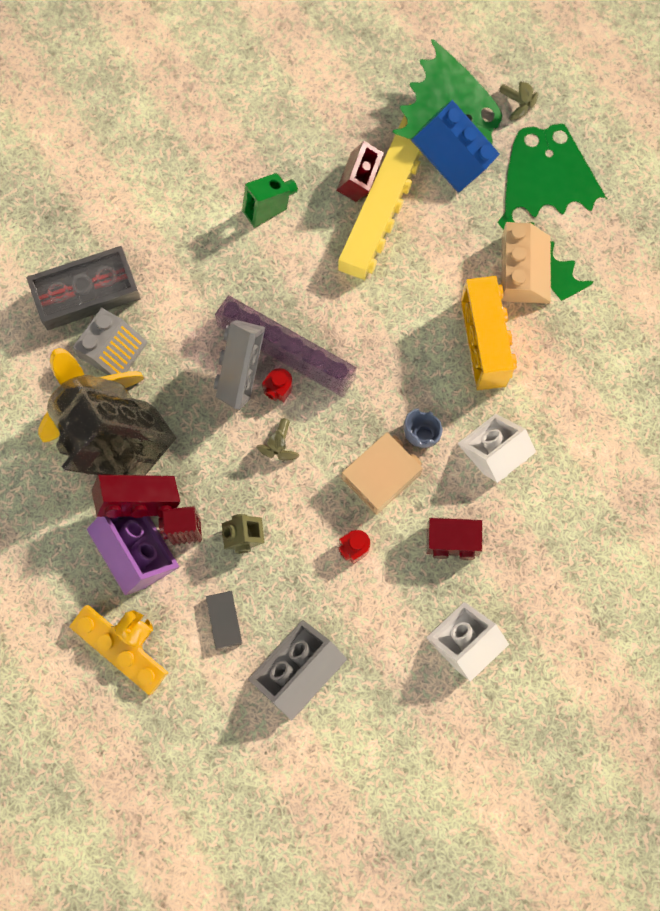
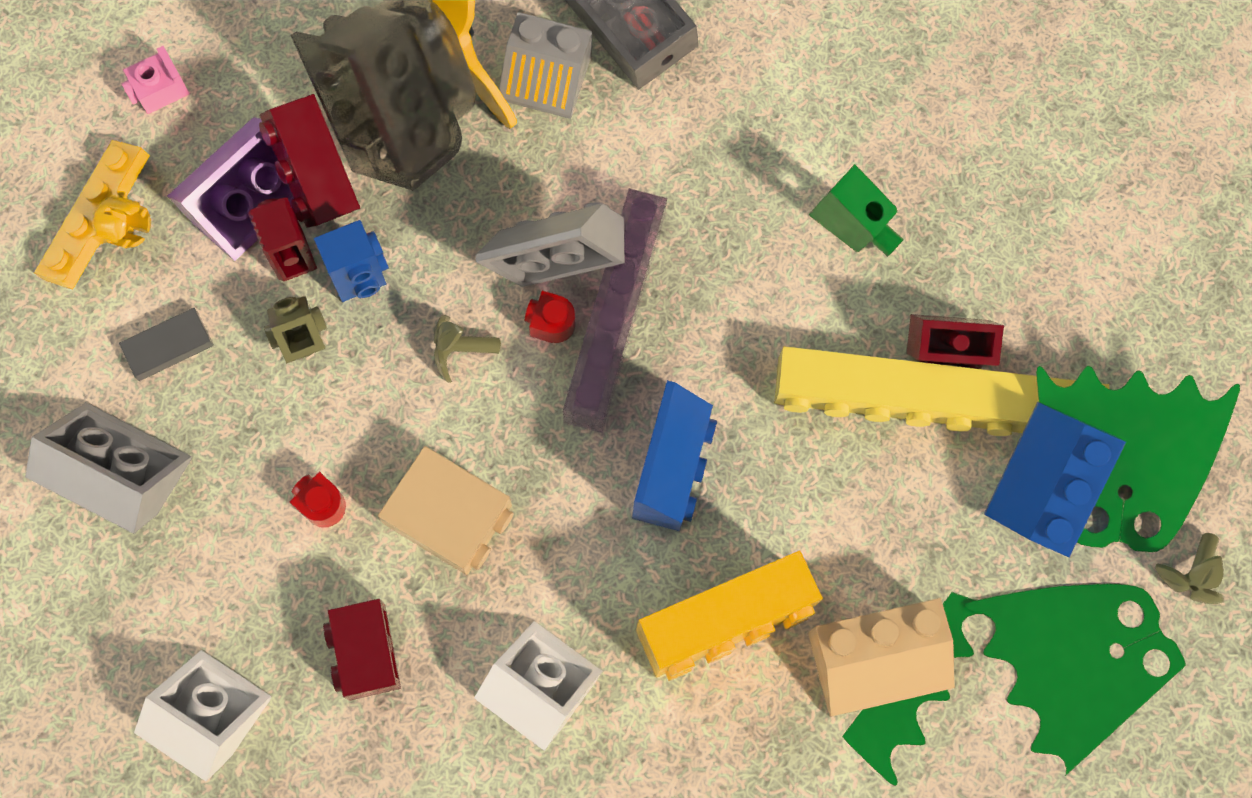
camera: 70 degrees right, 0 degrees up
(44, 595) = (154, 82): none -> bright pink brick
(211, 486) = (353, 260): none -> blue brick
(386, 340) = (674, 459): none -> blue slope
(422, 429) = (536, 554): sand blue hair -> none

